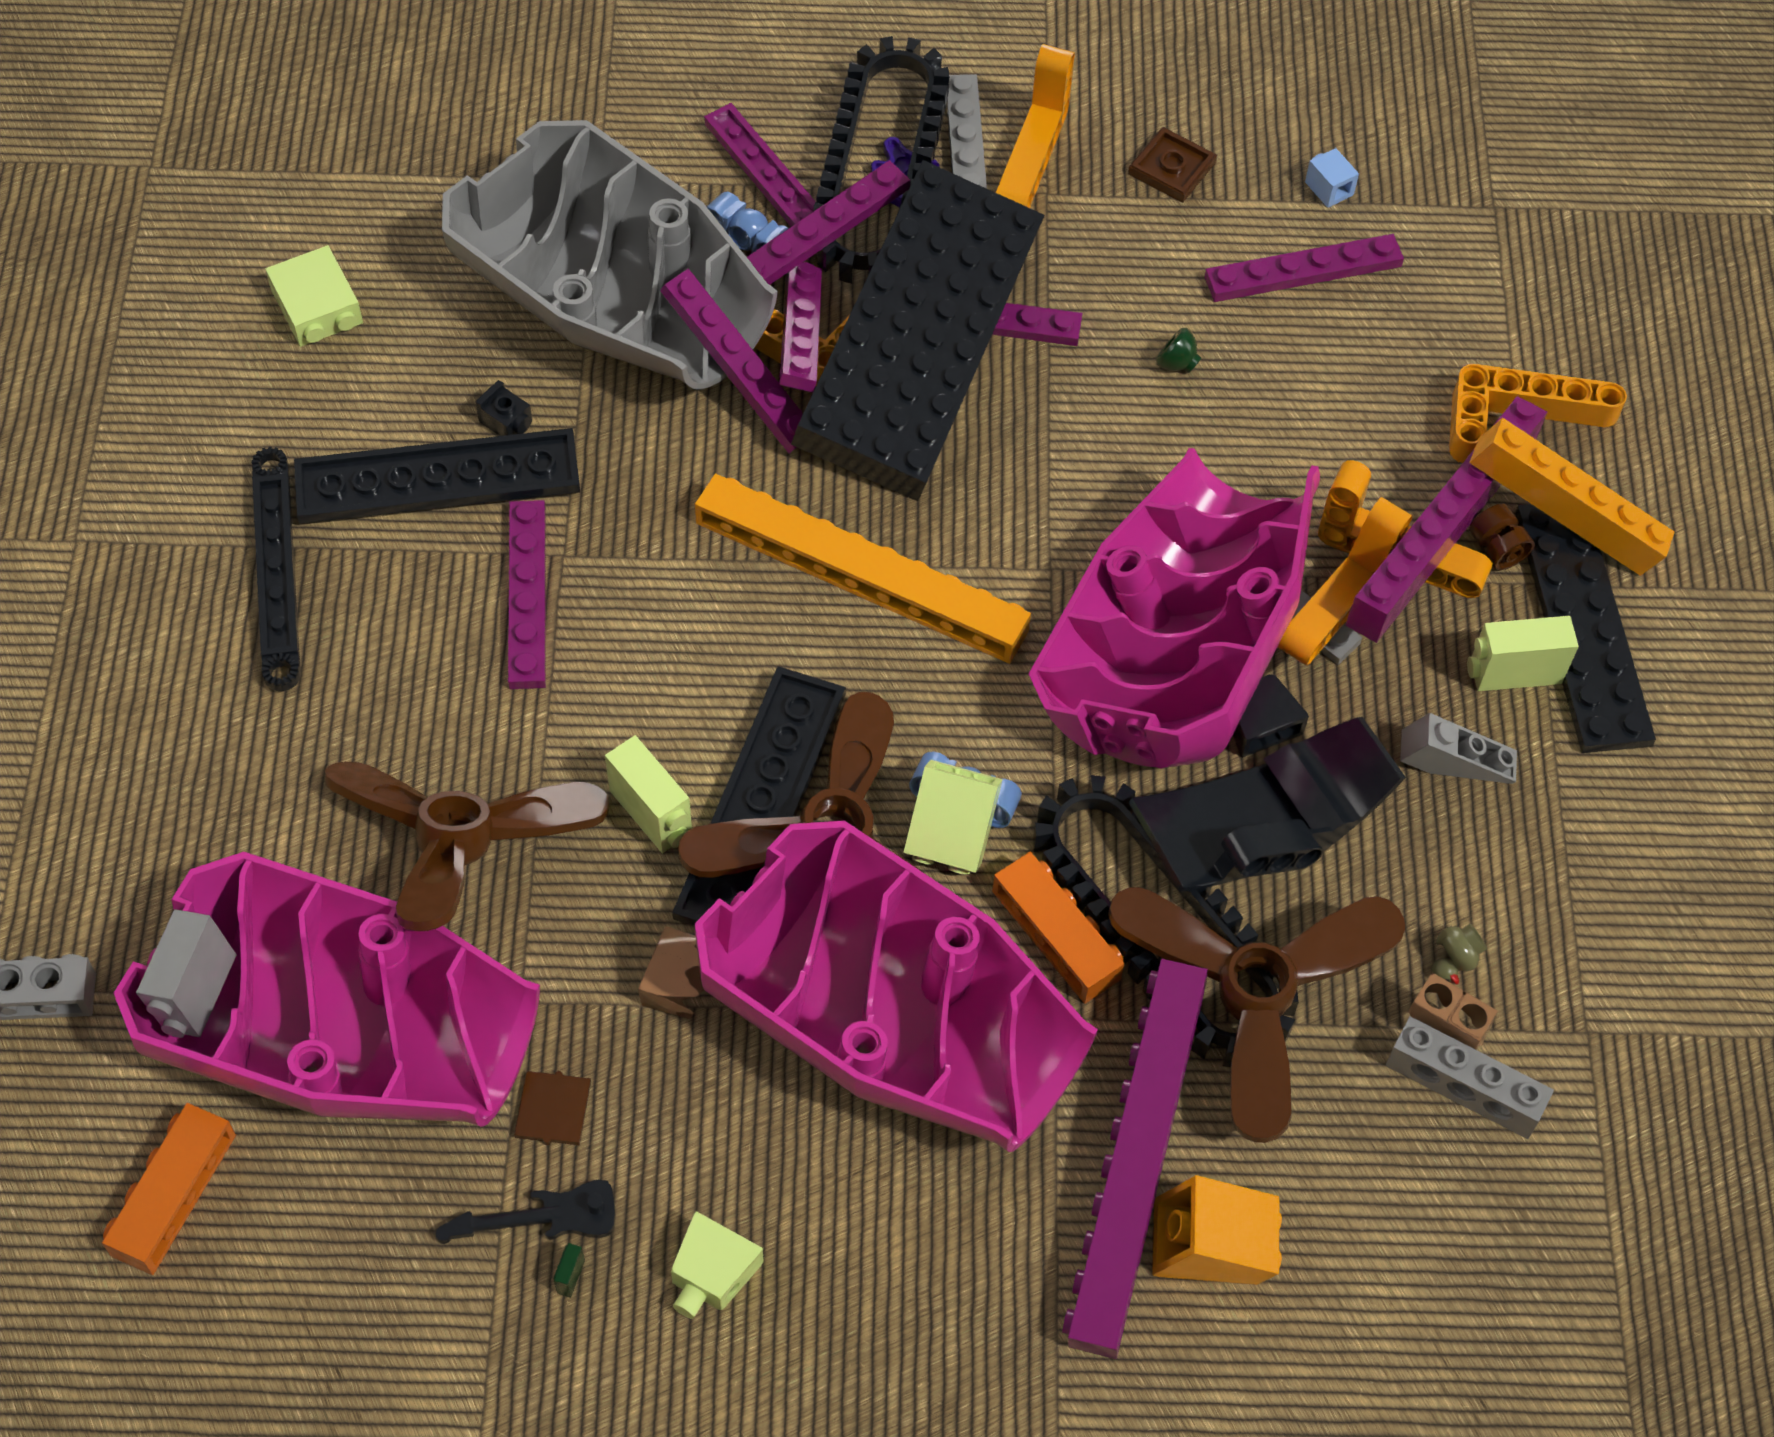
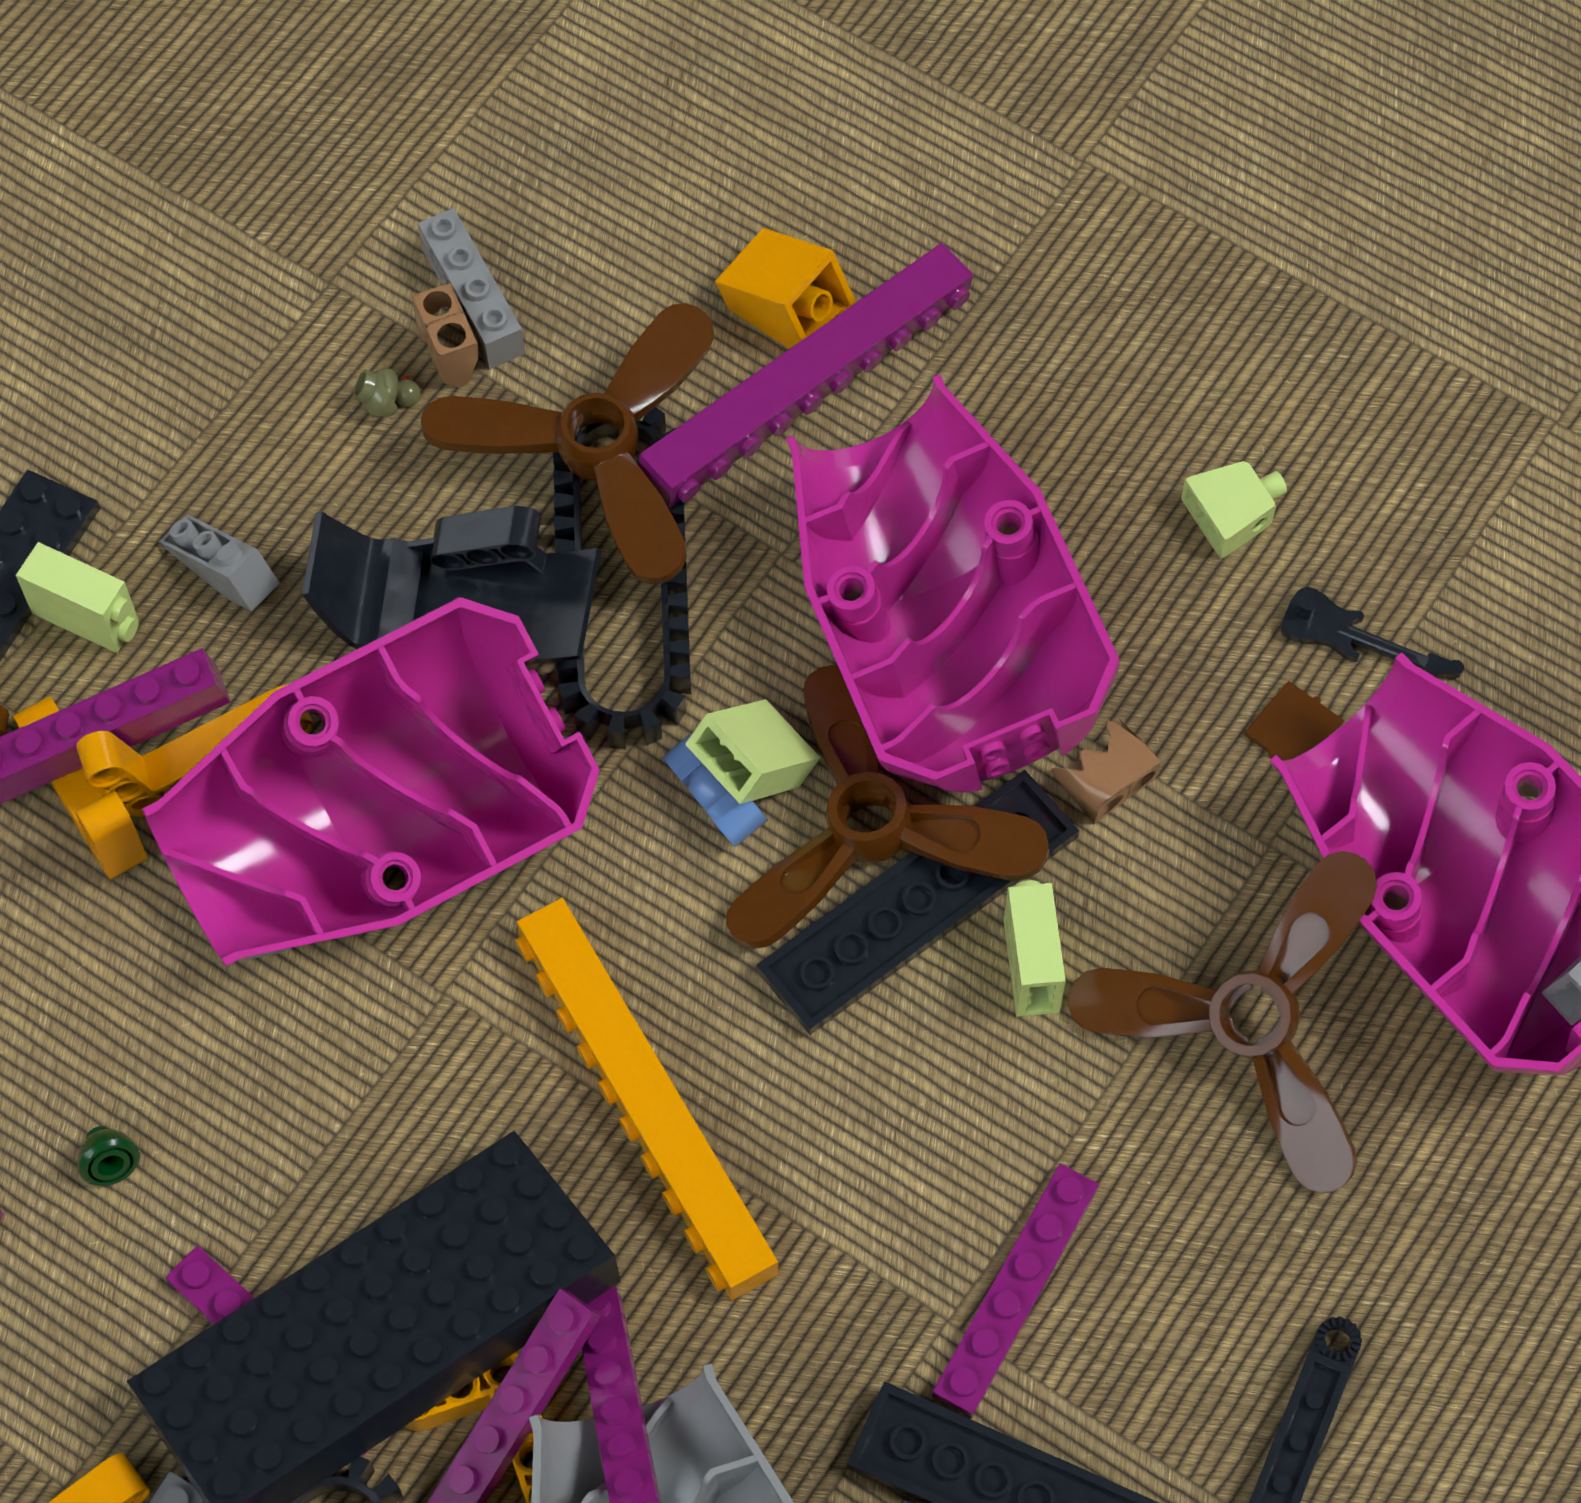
camera: 145 degrees left, 5 degrees up
(569, 1270) = (1361, 568): dark green tile -> none
(1058, 926) = (724, 615): orange brick -> none

